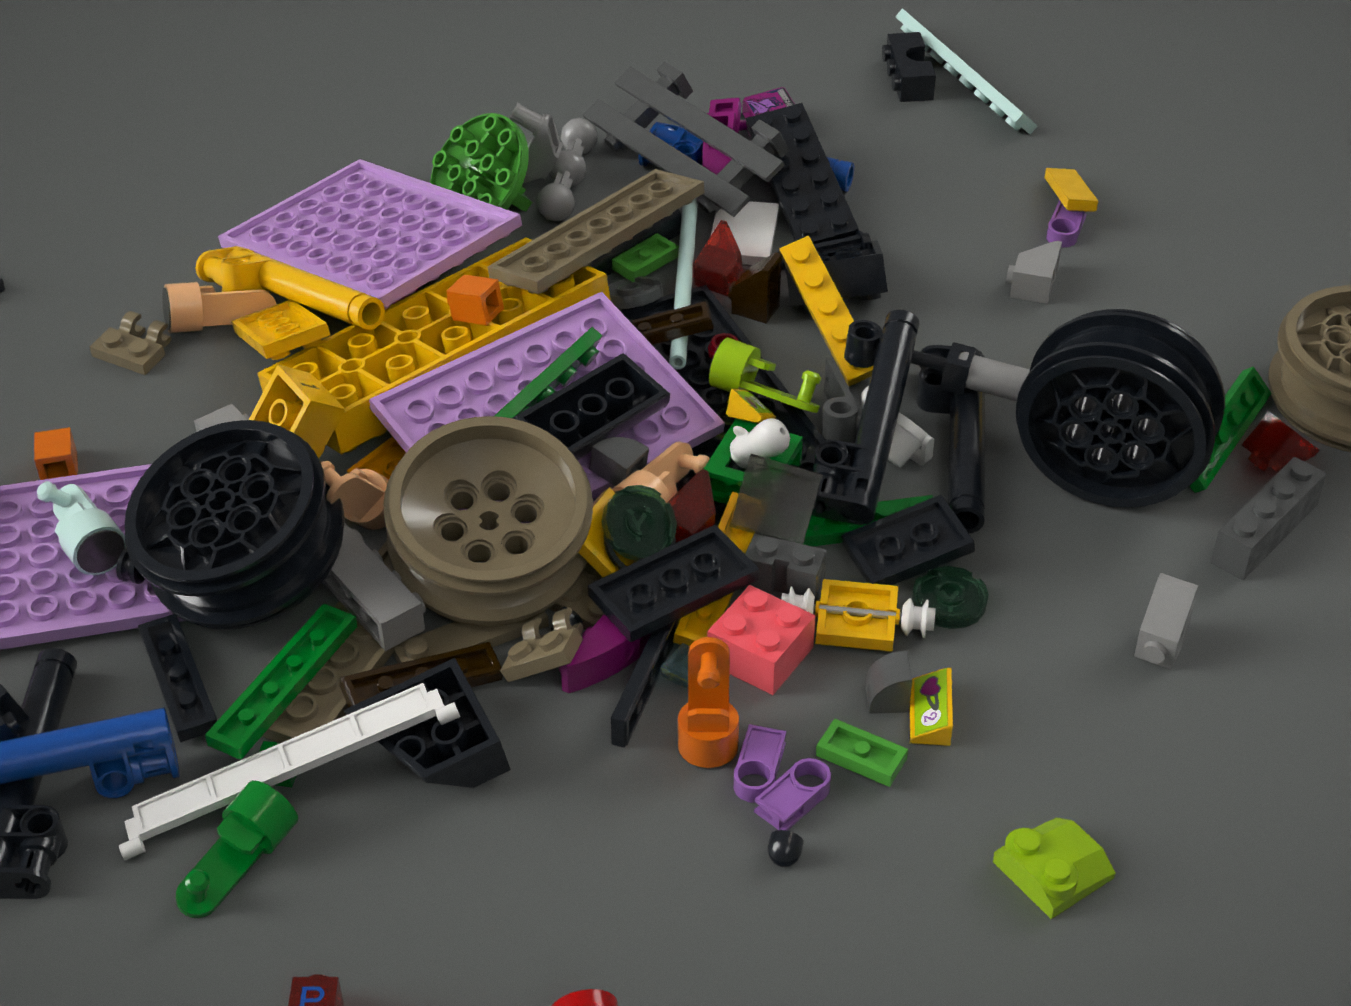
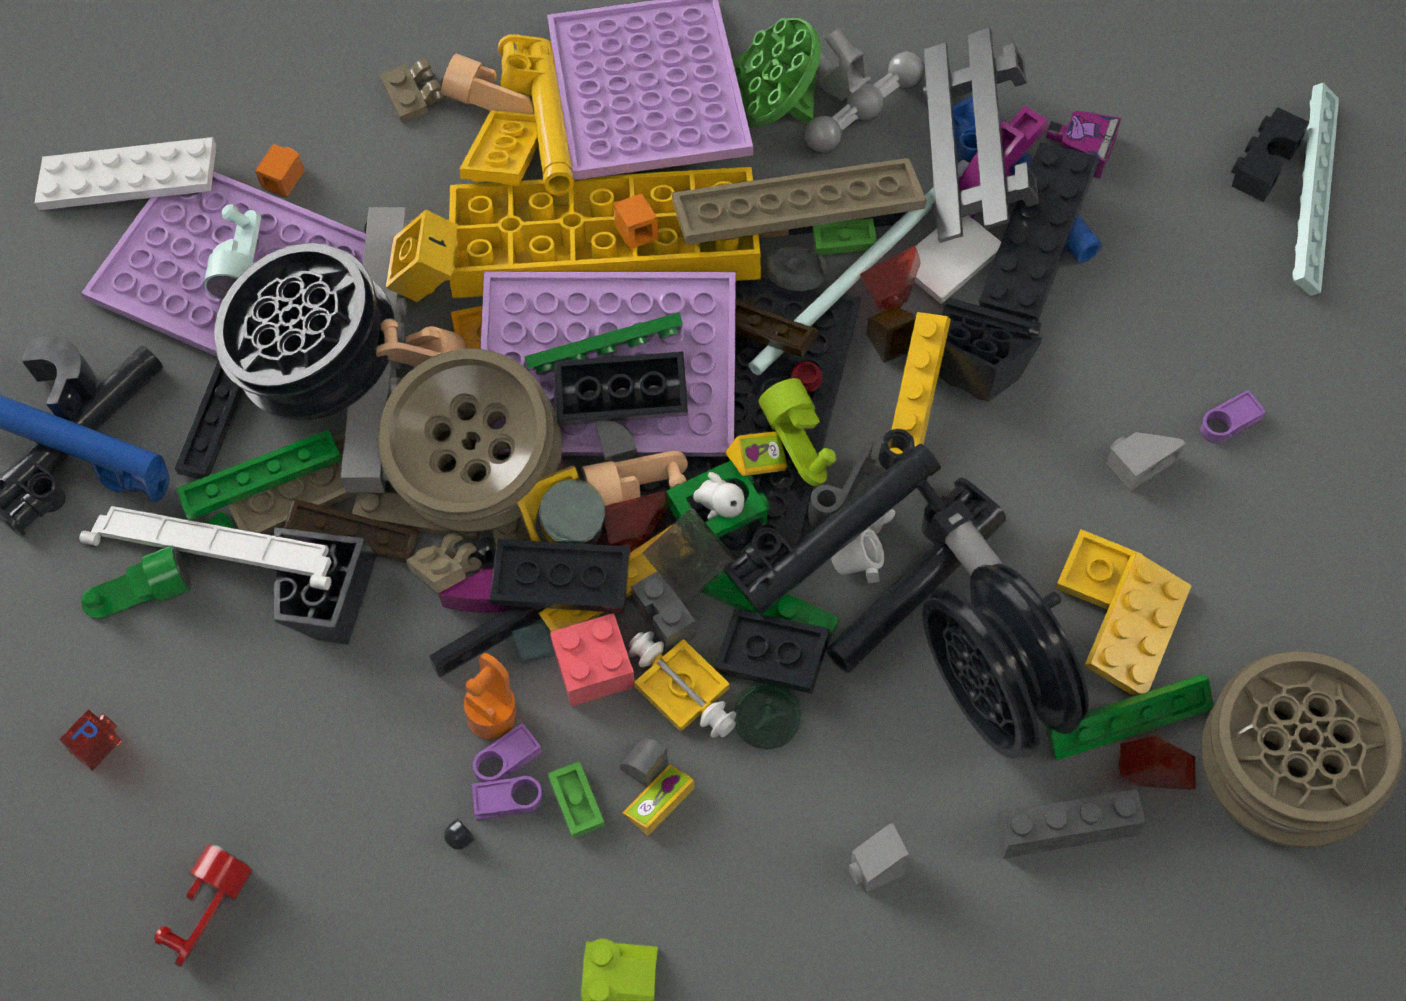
camera: 40 degrees right, 20 degrees up
(1071, 189) = (1265, 387): yellow tile -> none

